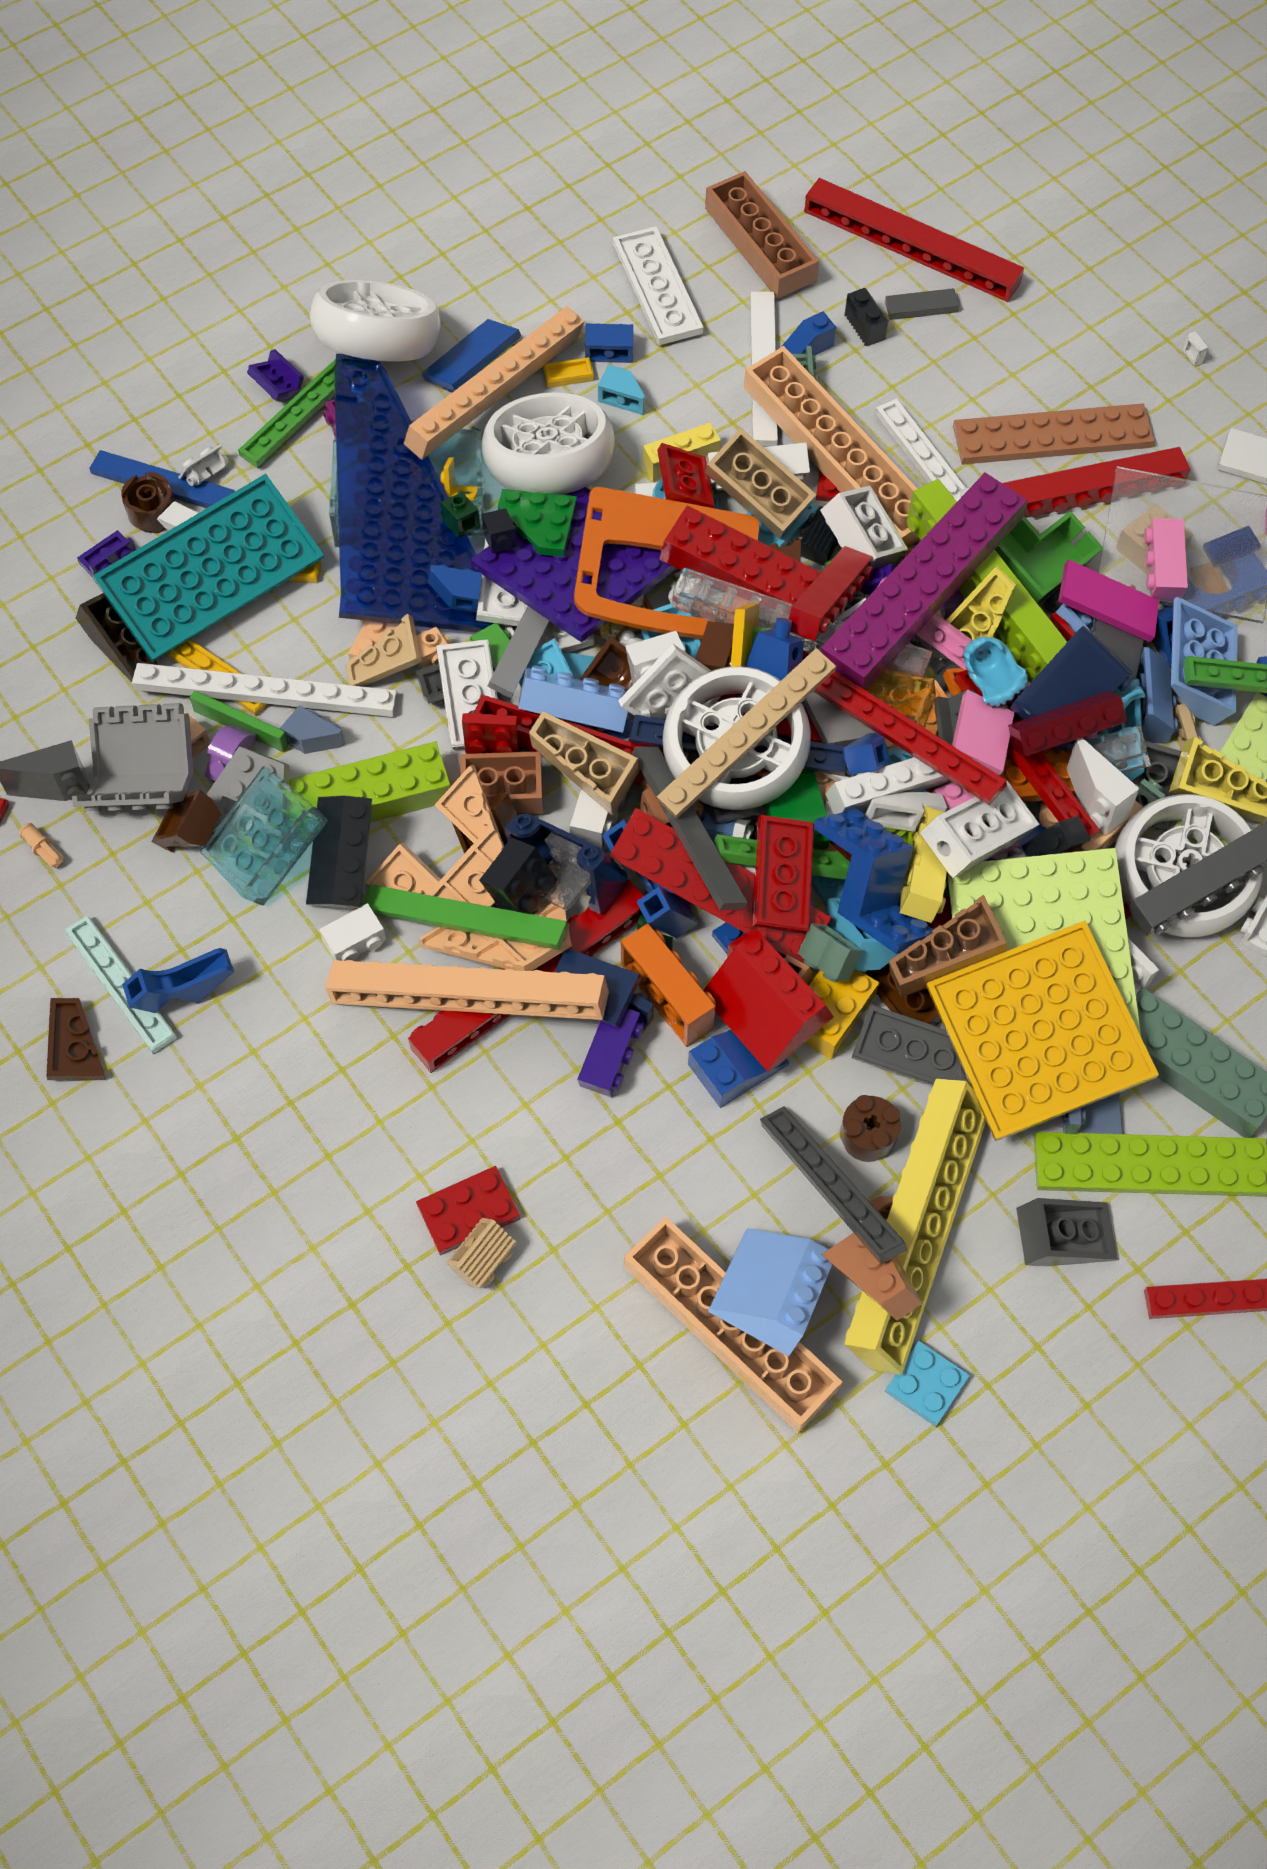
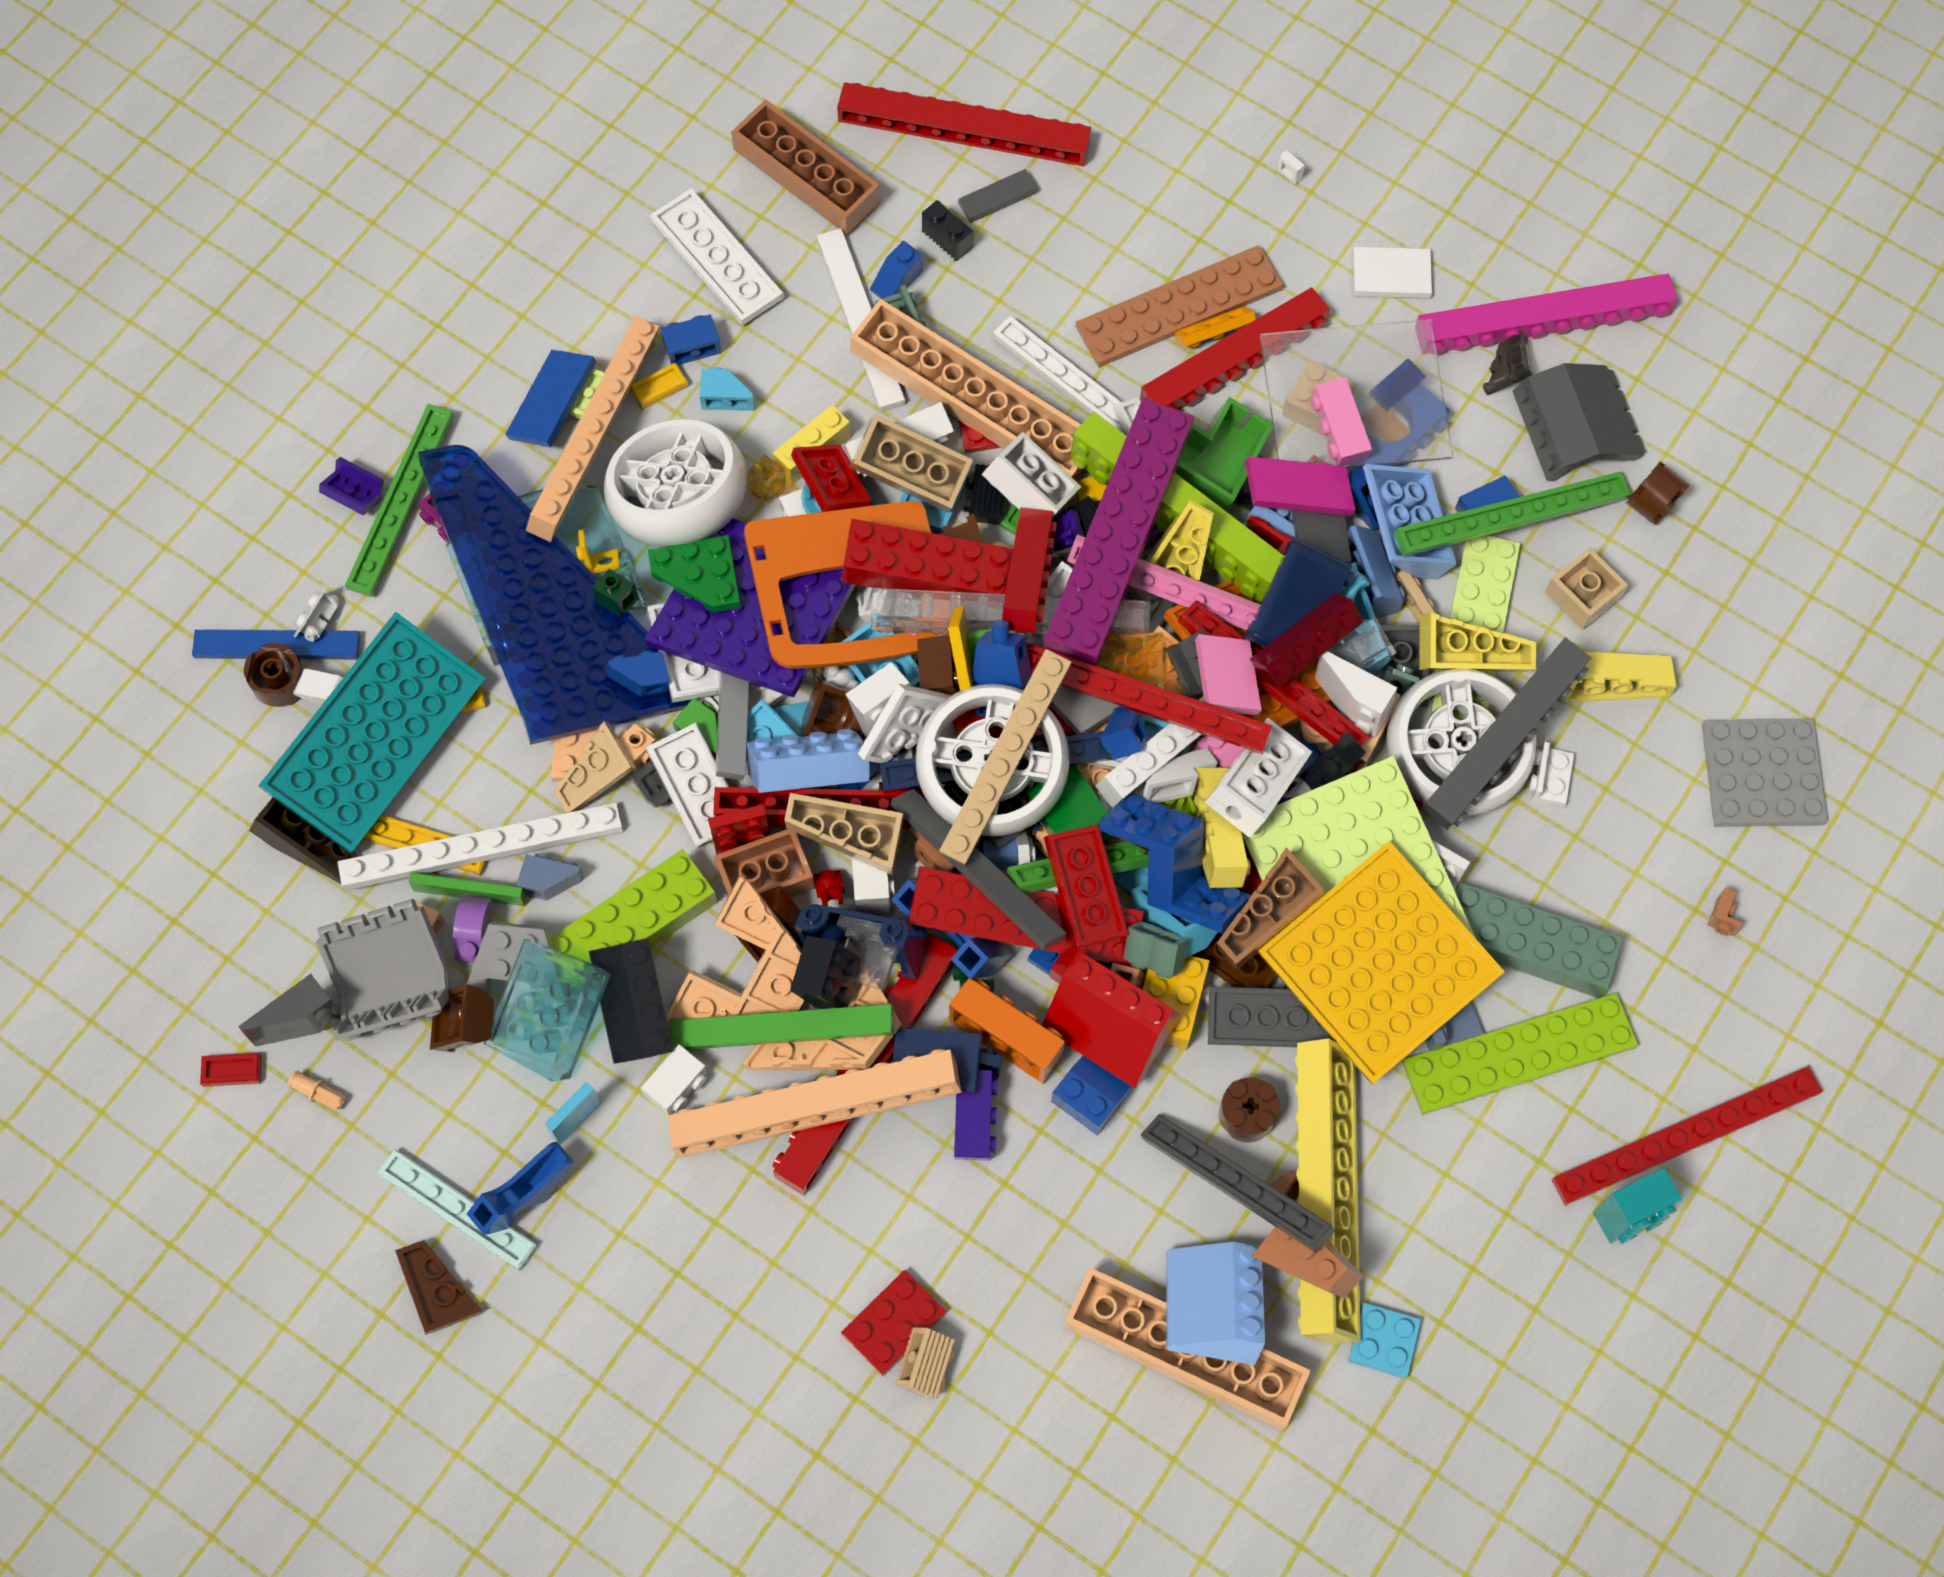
camera: 20 degrees left, 5 degrees up
(106, 553) = (253, 748): dark purple bracket -> none
(250, 931) = (573, 1113): none -> medium azure tile
(375, 320) = (441, 397): white wheel -> none
(499, 530) = (664, 600): black brick -> none
(556, 813) = (829, 886): none -> red plate
(630, 467) = (766, 479): none -> clear yellow brick
(994, 670) = (1219, 606): medium azure piece -> none
(1055, 460) = (1214, 327): none -> light orange plate
(1065, 1232) = (1463, 1150): dark grey slope -> none
(1220, 1337) = (1638, 1207): none -> teal brick

